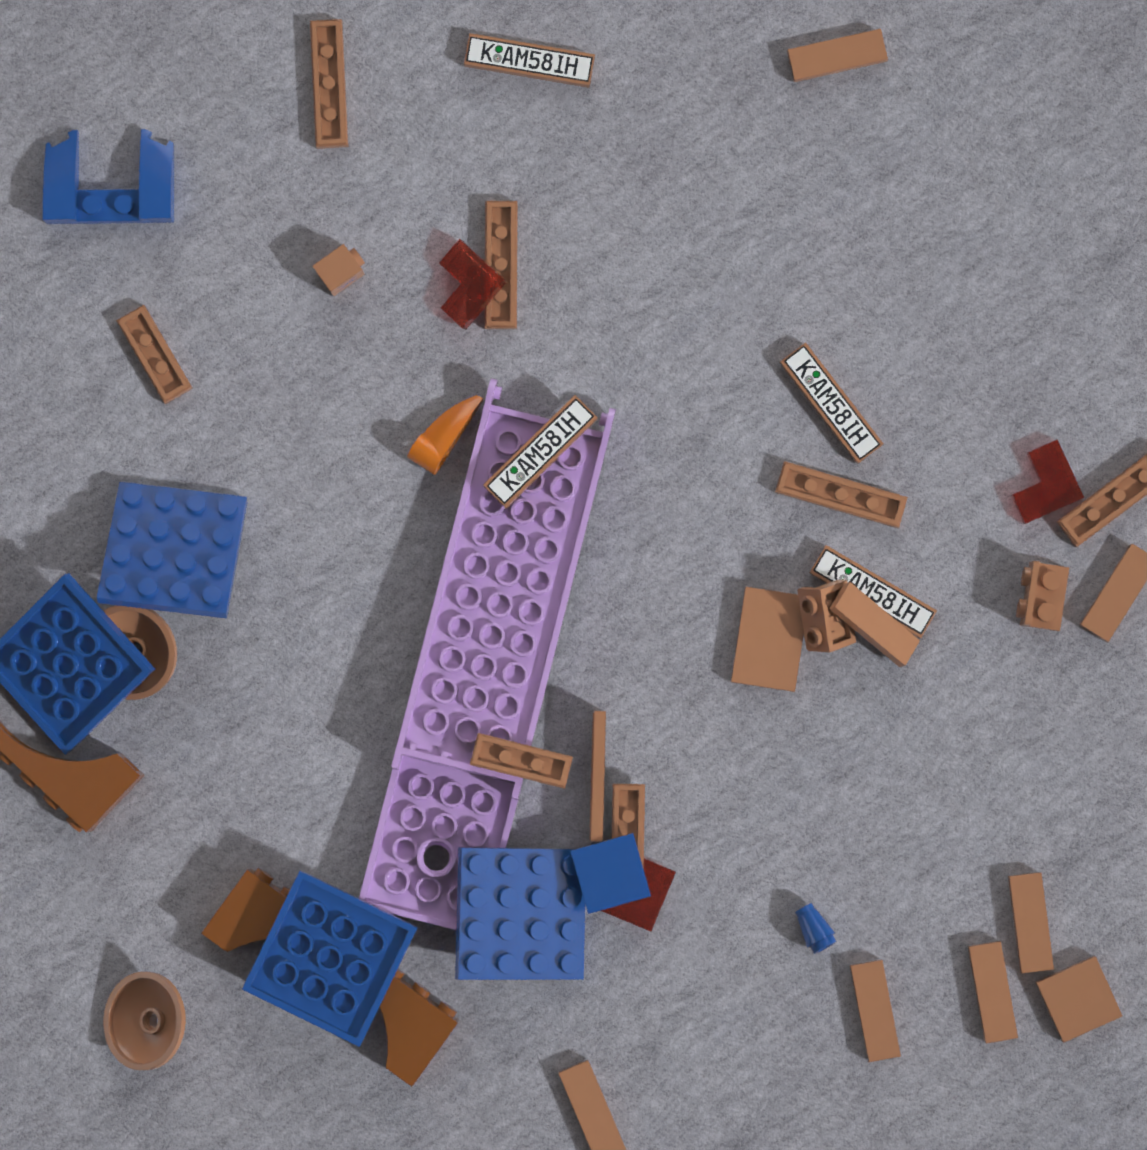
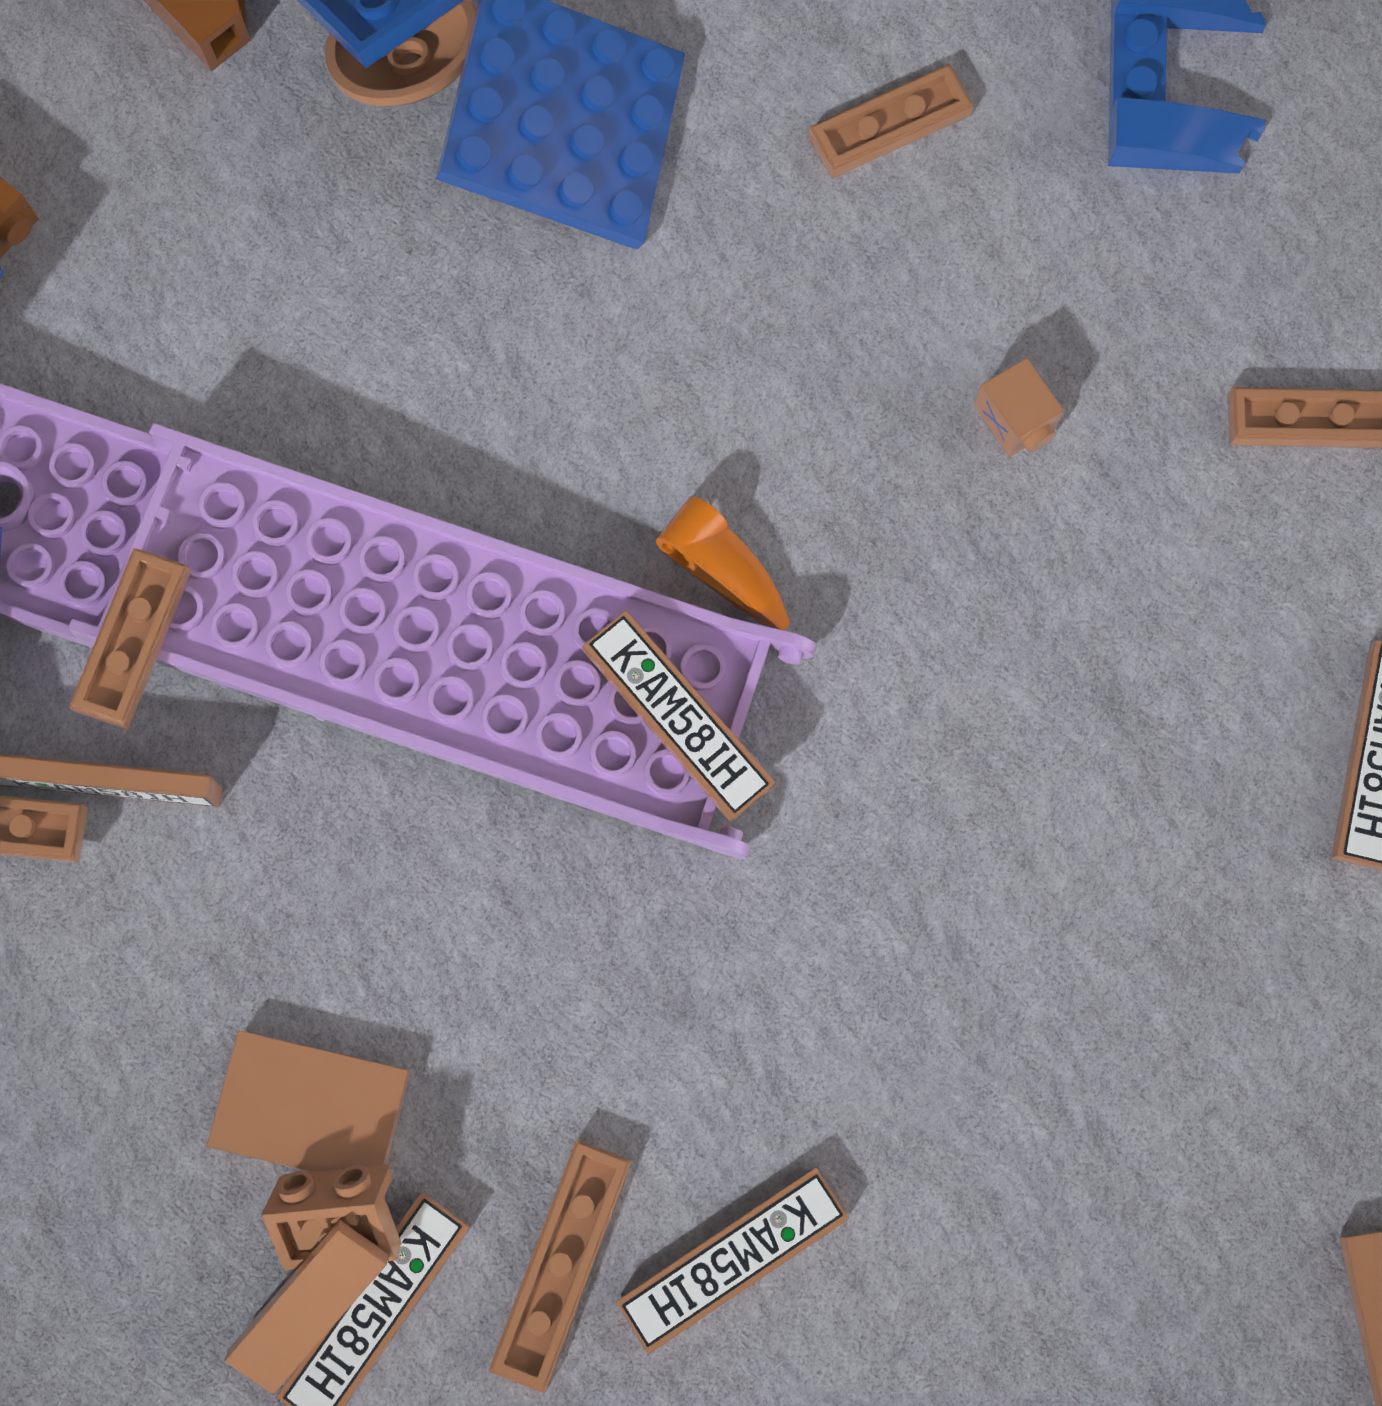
camera: 90 degrees right, 10 degrees down
(477, 285) = (984, 635): clear red tile -> none
(501, 255) = (1017, 681): nougat tile -> none

